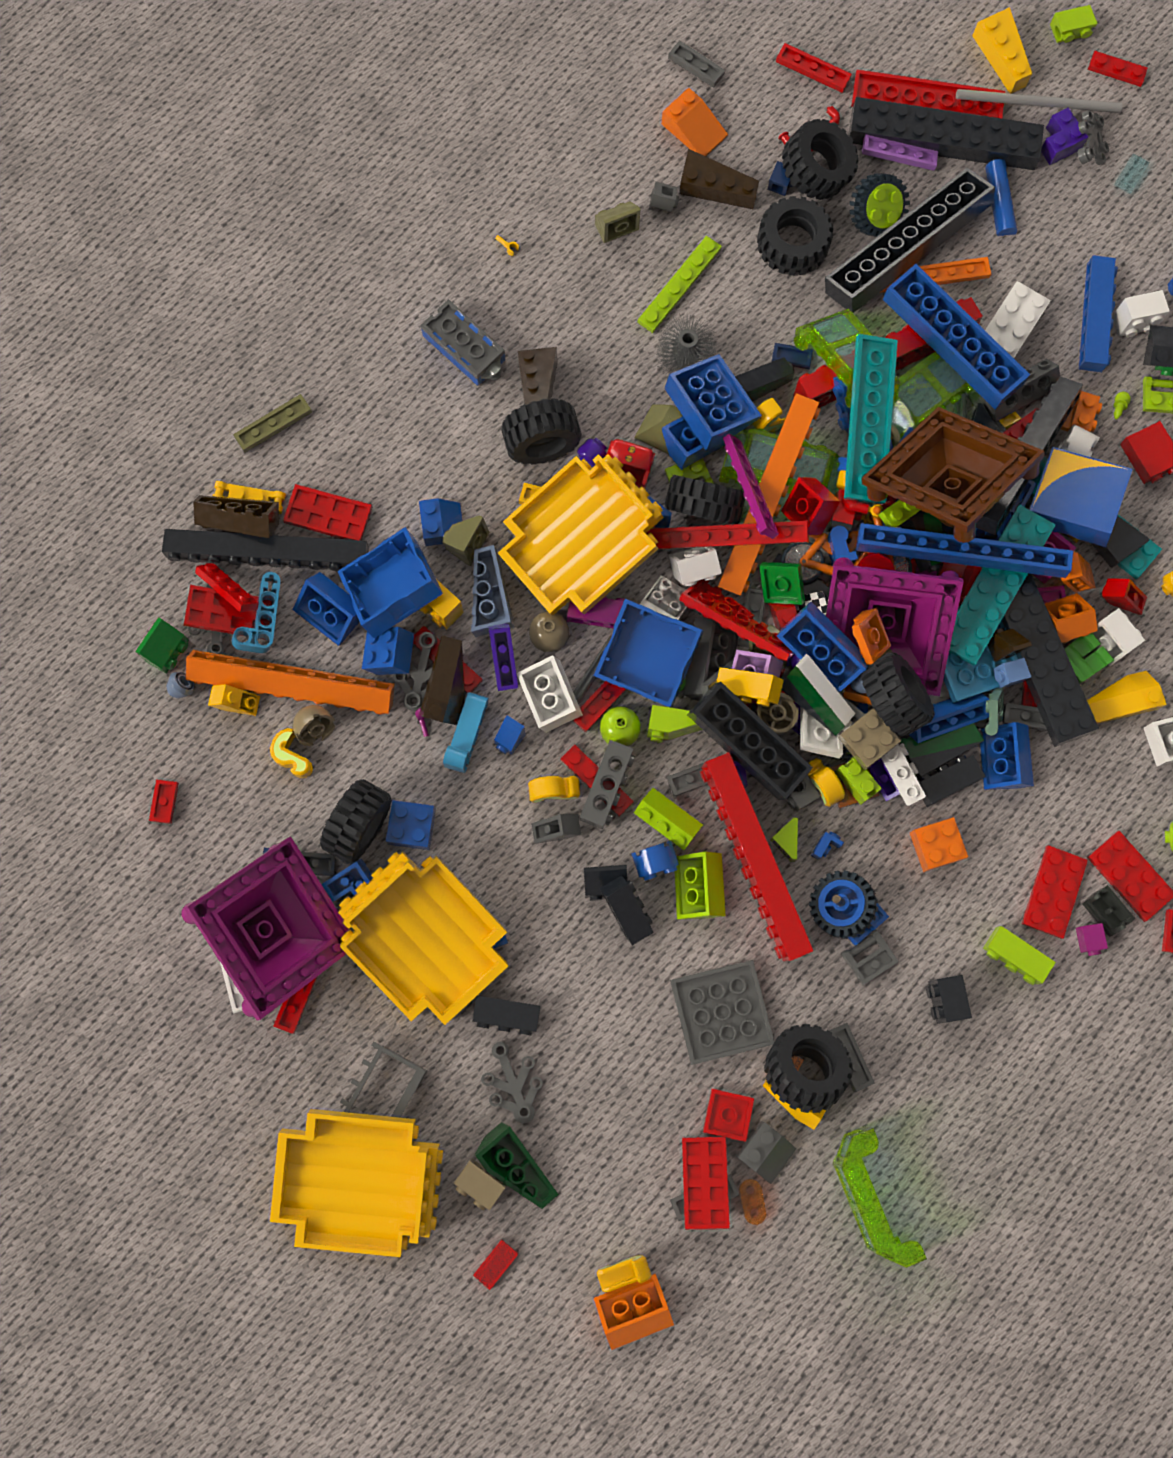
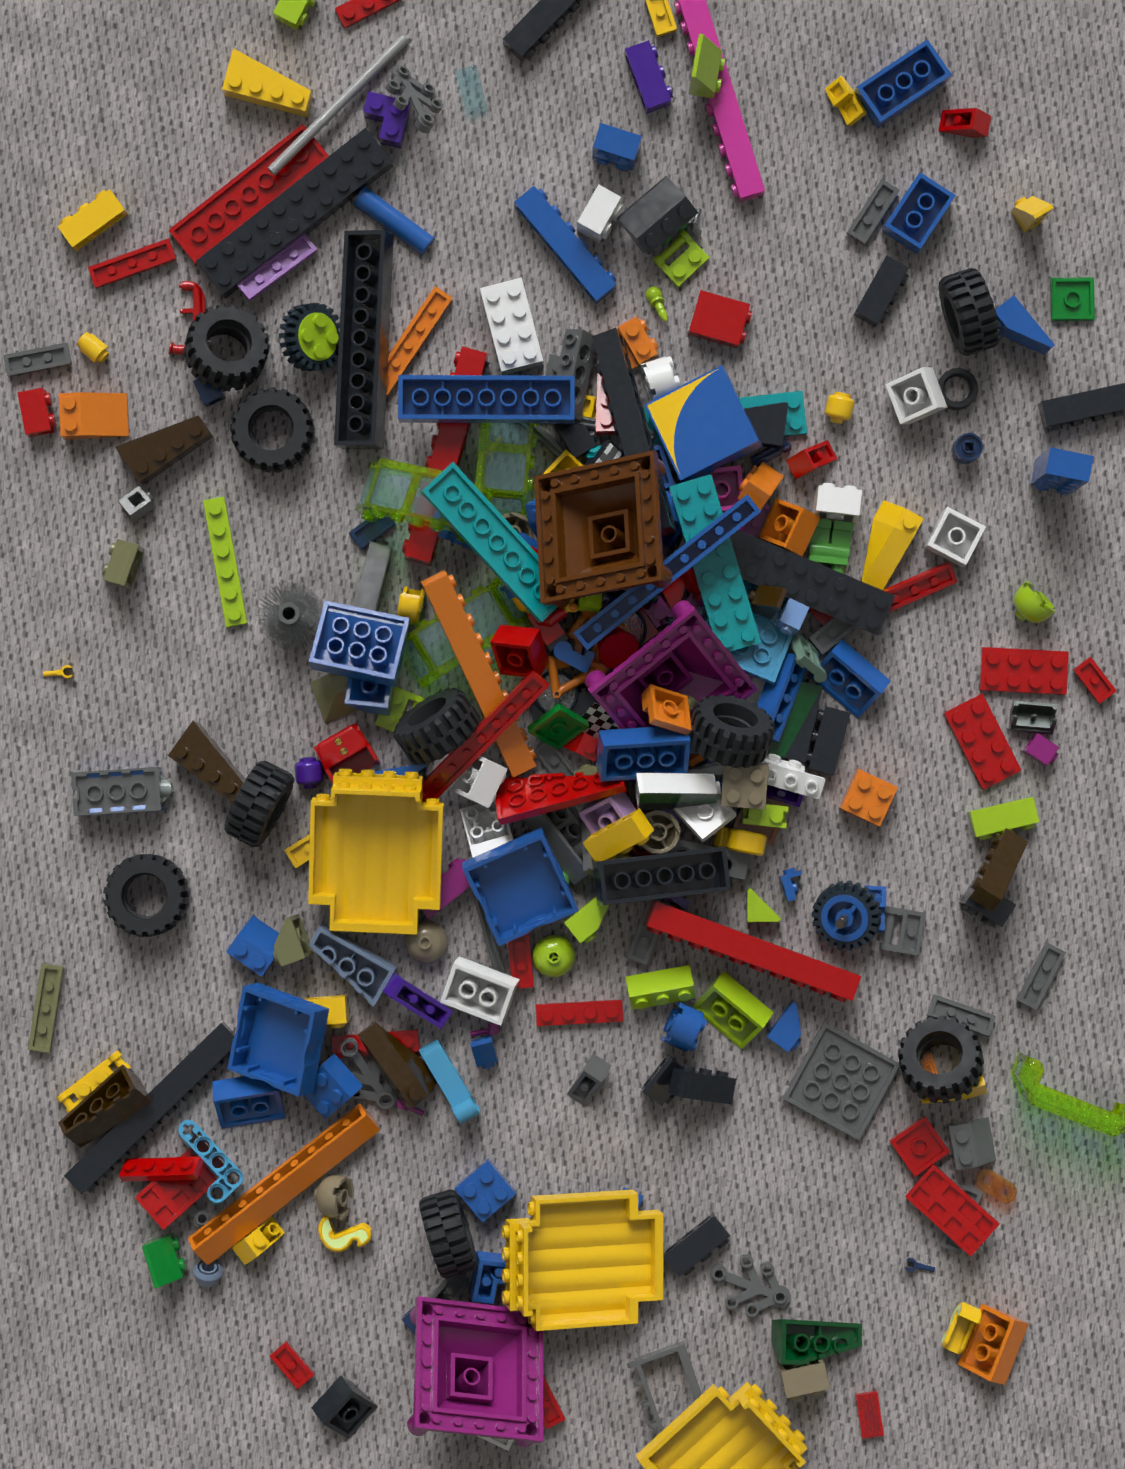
camera: 50 degrees left, 10 degrees up
(163, 865) = (343, 1407): none -> black slope
(327, 513) = (166, 1031): red plate -> none
(409, 395) = (117, 888): none -> black tyre
(531, 731) = (492, 1030): none -> magenta hand
(553, 788) = (557, 1053): yellow animal -> none
(614, 753) = (605, 1044): dark grey brick -> none
(640, 1199) = (920, 1266): none -> dark blue hand
(662, 89) = (36, 412): none -> red brick
(722, 937) = (787, 1029): none -> blue slope
(737, 88) = (93, 347): none -> yellow brick
(750, 485) = (461, 686): magenta plate -> none
(816, 21) = (92, 219): none -> yellow brick
(934, 1090) = (1041, 976): none -> dark grey plate
(985, 978) = (997, 869): none -> dark brown wedge
(1102, 567) = (770, 453): none -> dark blue axle
(1117, 748) = (922, 585): none -> red plate

